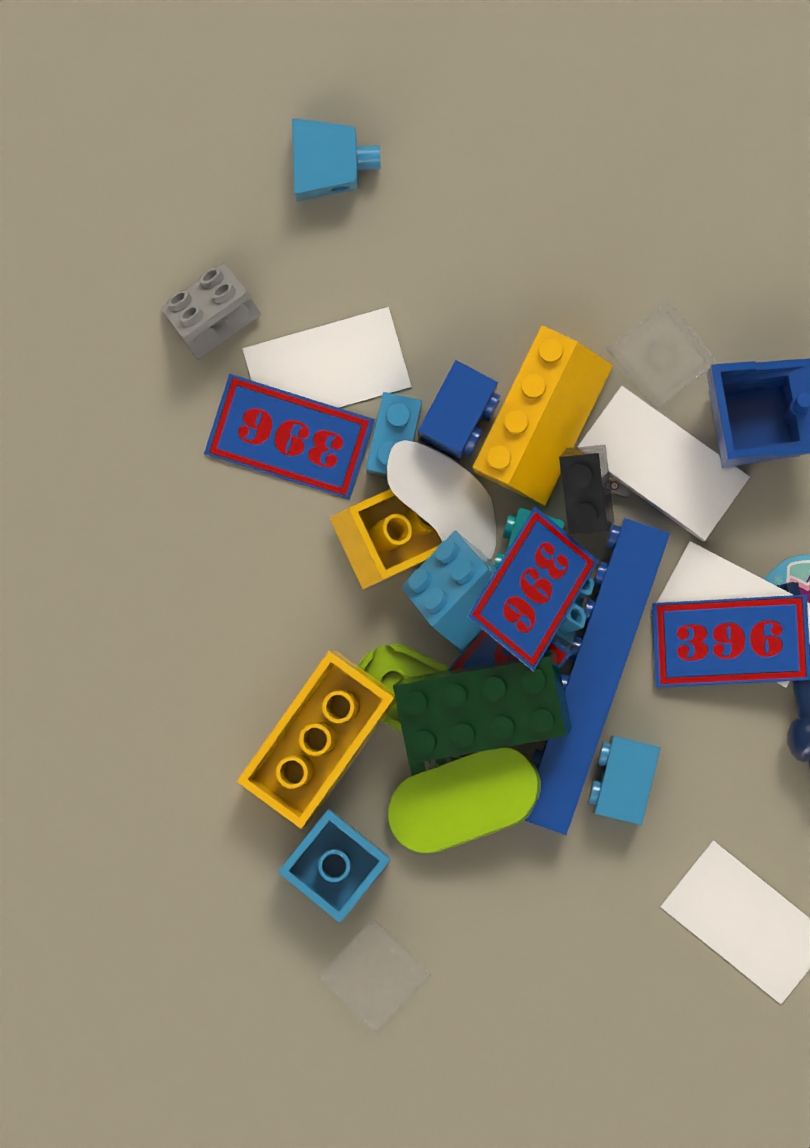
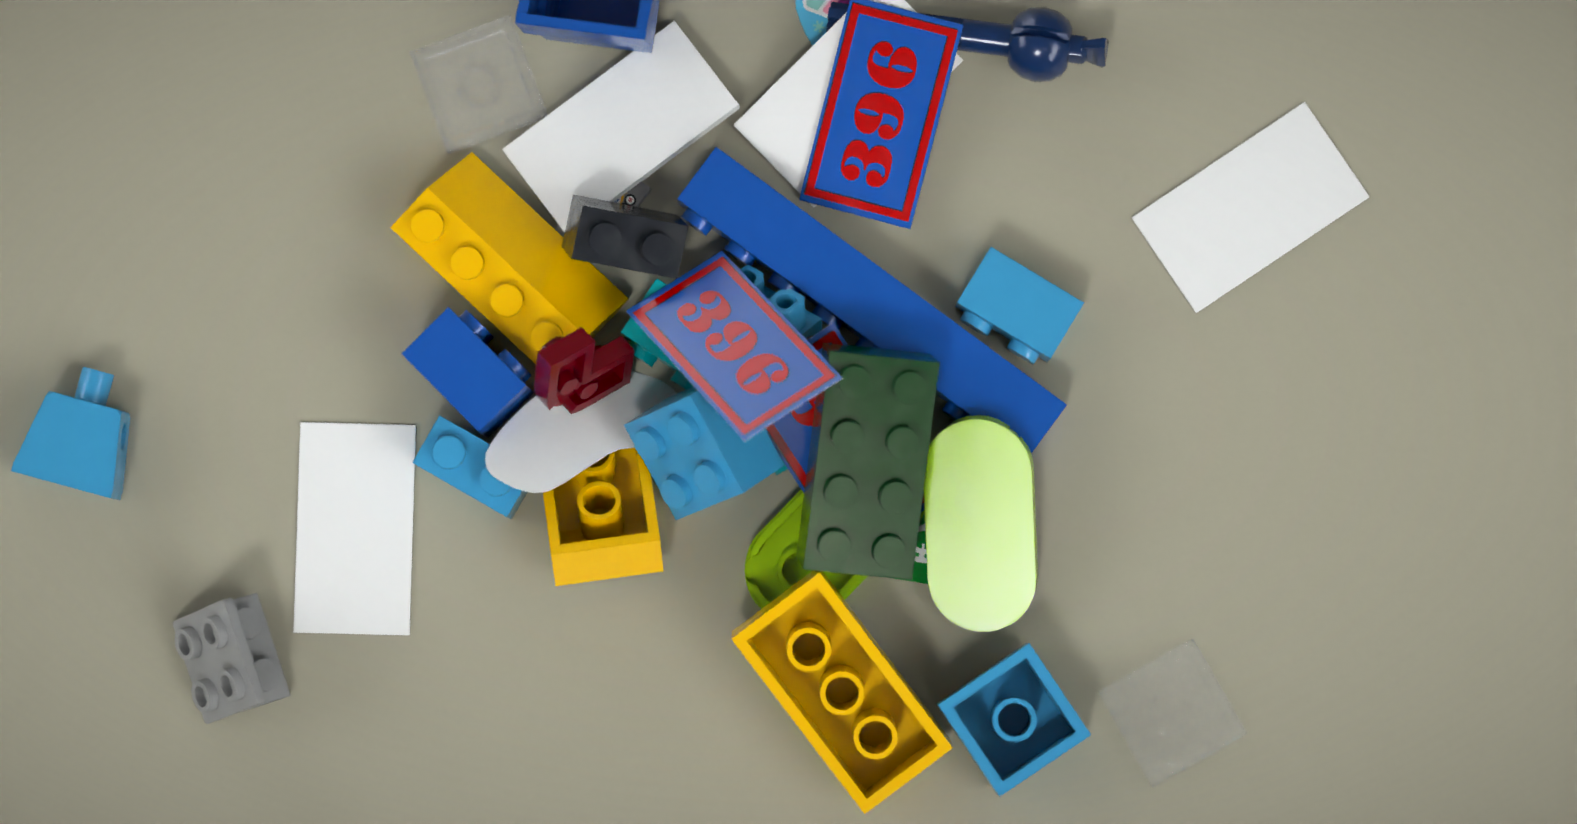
camera: 75 degrees left, 0 degrees up
(289, 436) = (430, 606): sticker -> none
(482, 487) = (578, 372): none -> dark red plate

